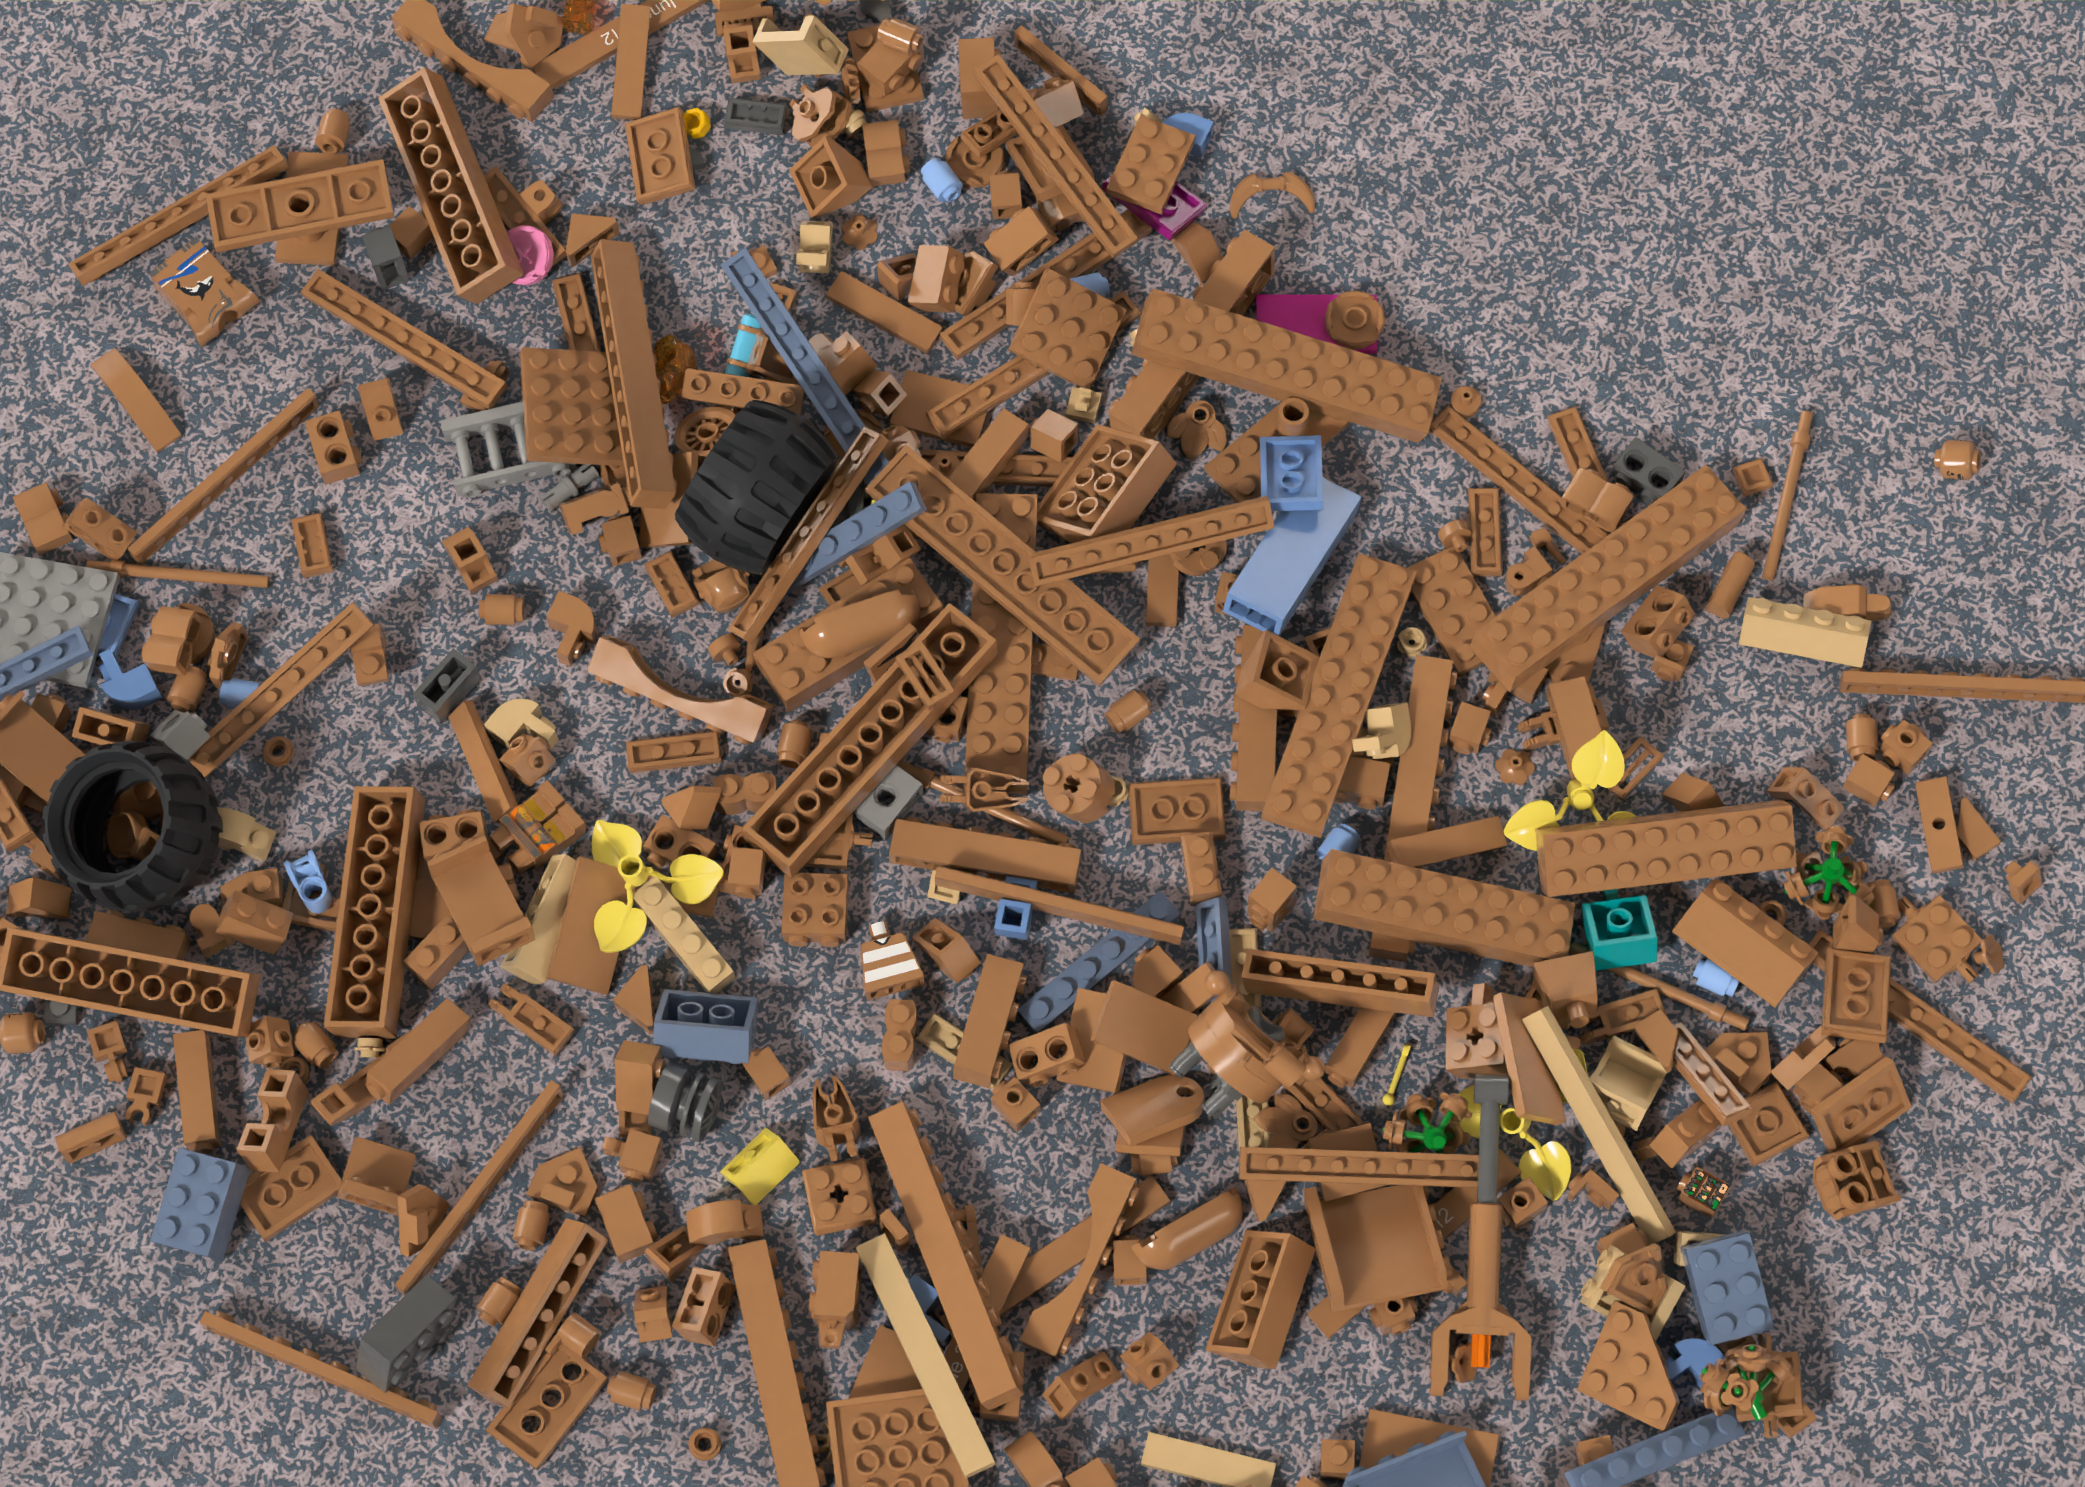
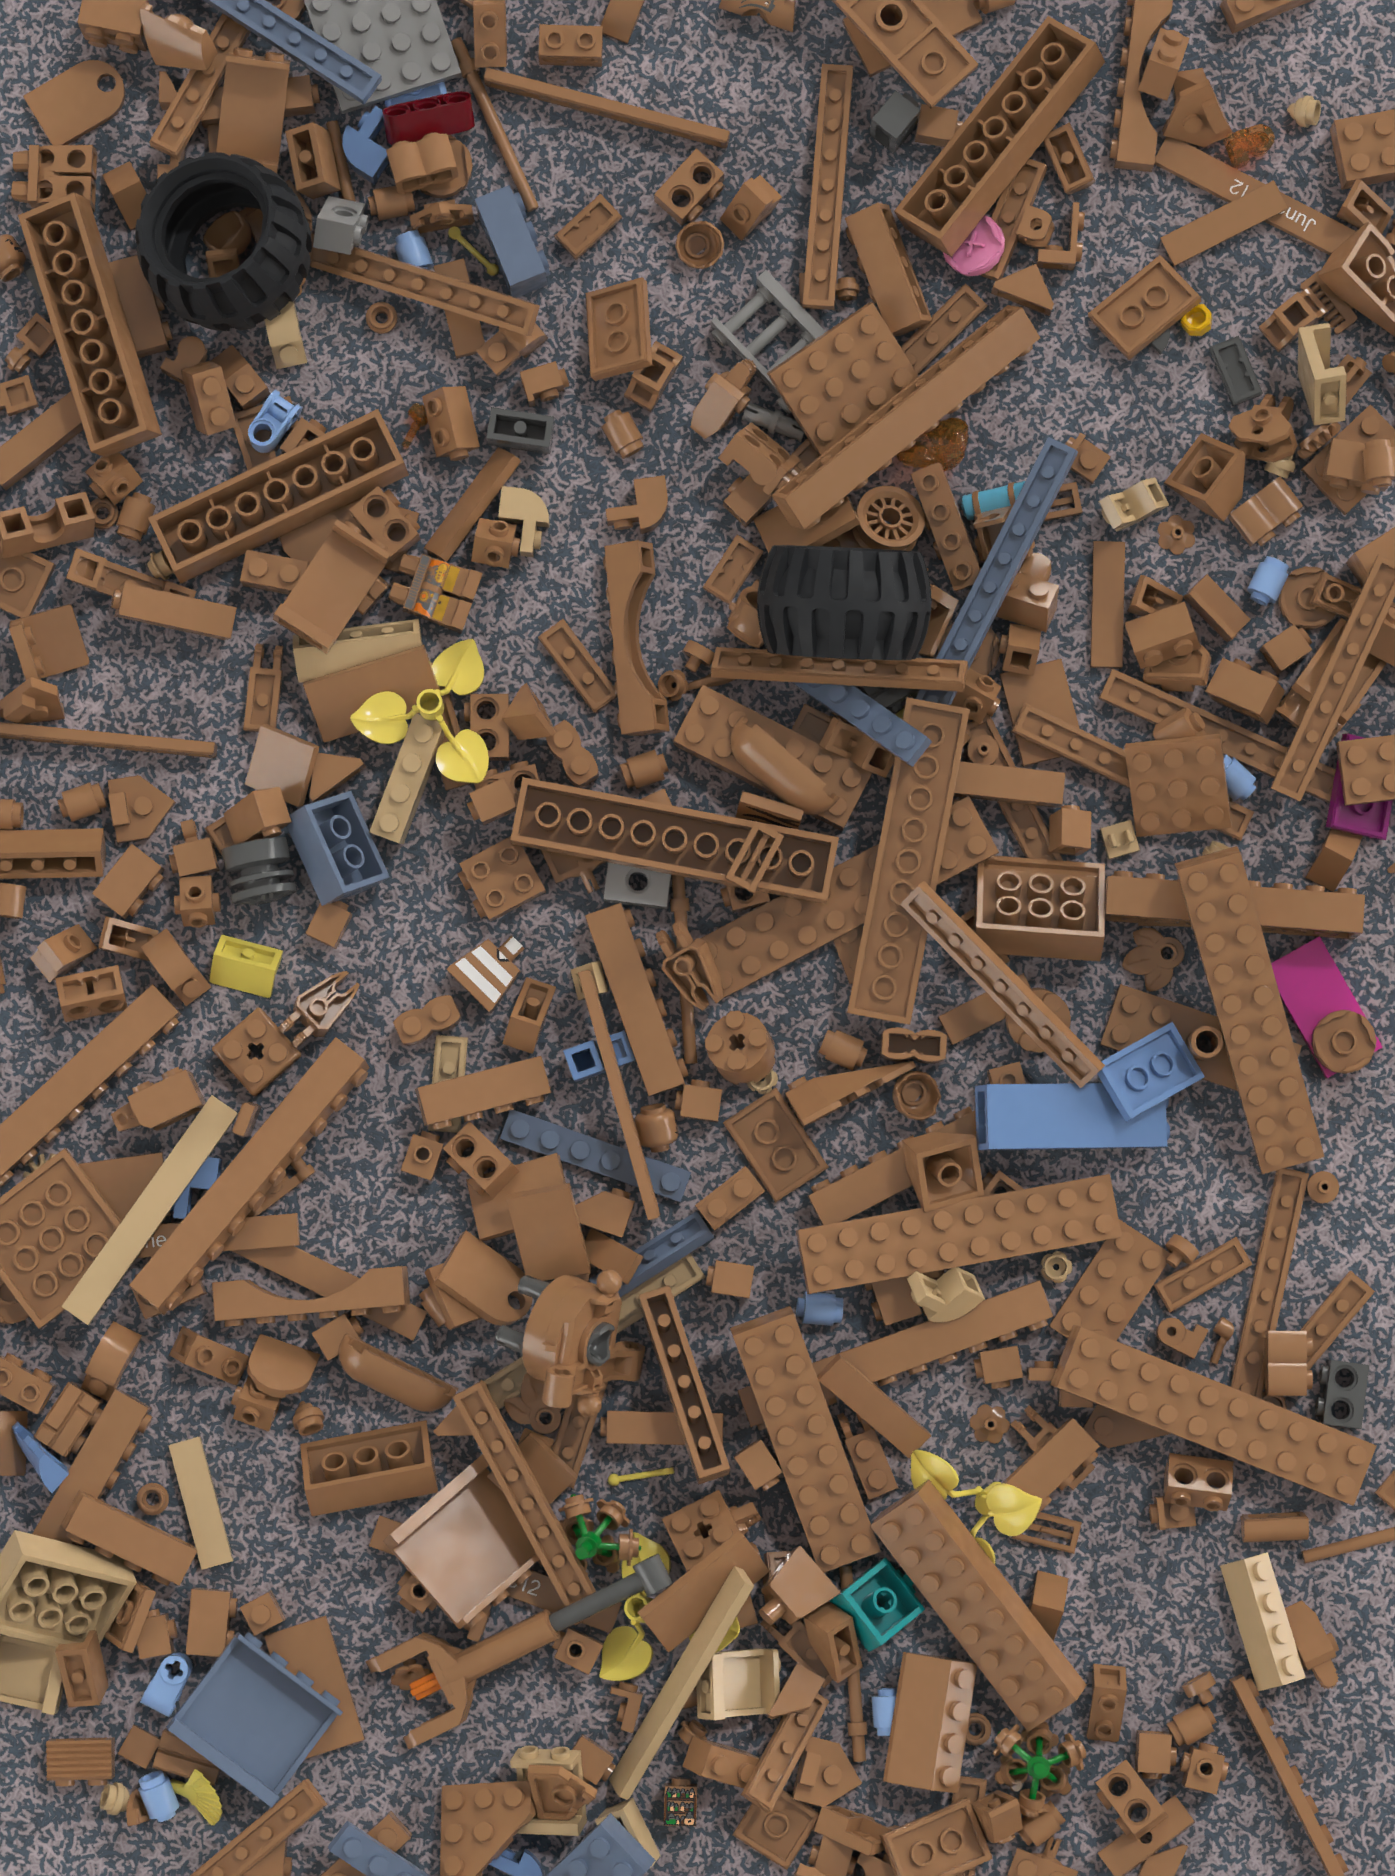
camera: 55 degrees right, 15 degrees up
(122, 711) = (341, 162): none -> medium nougat bar
(135, 618) = (439, 114): none -> dark red beam
(153, 475) = (570, 45): none -> medium nougat brick
(246, 655) = (455, 233): none -> light yellow hinge
(283, 604) = (513, 241): none -> sand blue brick
(331, 688) = (464, 331): none -> medium nougat tile
(332, 859) = (301, 433): none -> medium nougat bracket
(378, 460) = (695, 238): none -> medium nougat hair
(382, 764) = (418, 414): none -> clear orange hand
(403, 739) = (451, 422): none -> medium nougat brick
(413, 561) = (618, 329): none -> medium nougat tile
(418, 649) = (543, 382): none -> medium nougat brick
(473, 33) = (1163, 63): none -> medium nougat brick
(499, 329) = (887, 269): none -> medium nougat brick
(503, 148) = (1068, 159): none -> medium nougat brick
(524, 509) = (724, 397): none -> medium nougat hinge
(574, 200) = (1054, 256): none -> medium nougat bracket
(601, 1032) = (282, 762): none -> medium nougat tile
(679, 1172) = (197, 901): none -> medium nougat brick
(940, 230) = (1216, 608): none -> medium nougat panel
(1104, 850) = (699, 1101): none -> medium nougat brick
(1105, 892) = (656, 1127): none -> medium nougat head
(1128, 1323) = (280, 1367): none -> medium nougat tile
(1158, 741) = (826, 1094): none -> medium nougat wedge
(1163, 647) = (903, 1044): none -> medium nougat brick
(1187, 1328) = (308, 1419): none -> medium nougat plate
(1192, 676) = (909, 1088): none -> medium nougat hair
(1447, 961) = (758, 1465): none -> medium nougat brick
(1488, 872) = (868, 1458): none -> medium nougat hinge
(1630, 982) = (834, 1640): none -> medium nougat slope
(1833, 714) = (1200, 1686): none -> medium nougat tile
(1900, 809) = (1136, 1796): none -> medium nougat brick

